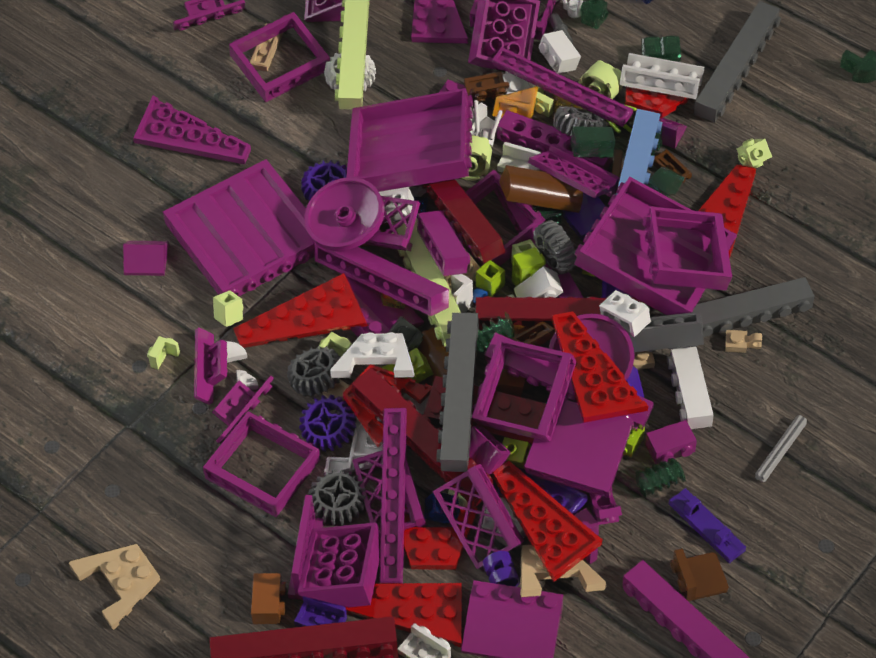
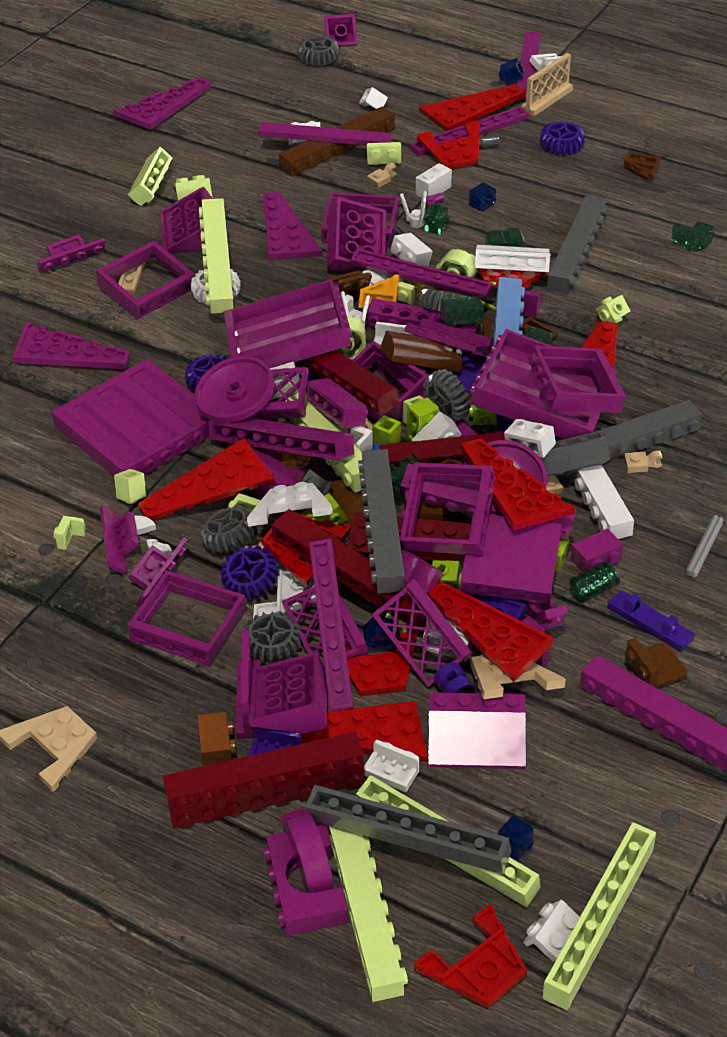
camera: 10 degrees left, 10 degrees down
(145, 257) = (38, 455): magenta slope -> none

